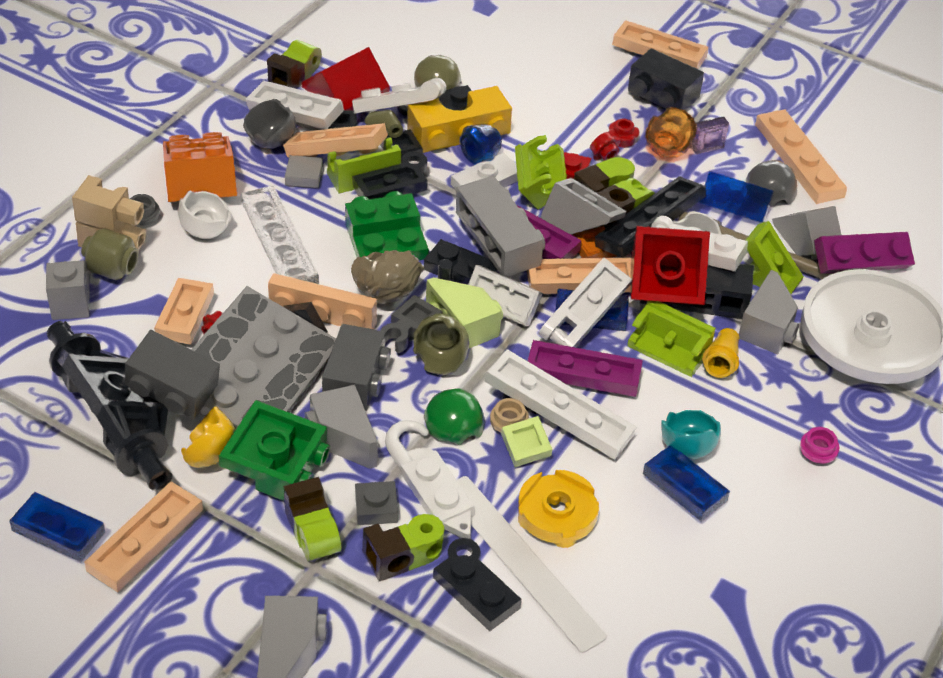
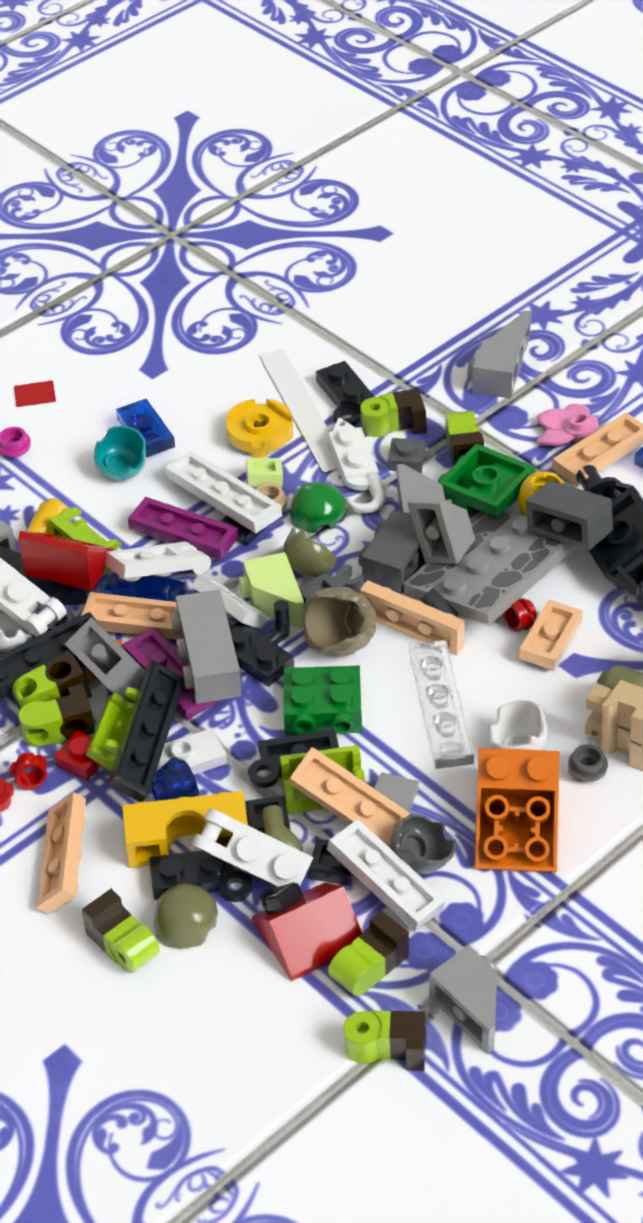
camera: 160 degrees left, 0 degrees up
(193, 576) = (566, 425): none -> bright pink plate
(220, 50) = (467, 994): none -> light grey slope
(270, 26) = (387, 1036): none -> leg
(309, 356) = (441, 529): none -> light grey slope
(369, 77) = (280, 897): none -> black tile
(479, 58) = (119, 932): none -> leg
(519, 155) = (146, 732): none -> black tile
(546, 96) = (61, 853): none -> light nougat plate
(845, 531) = (34, 393): none -> red sticker

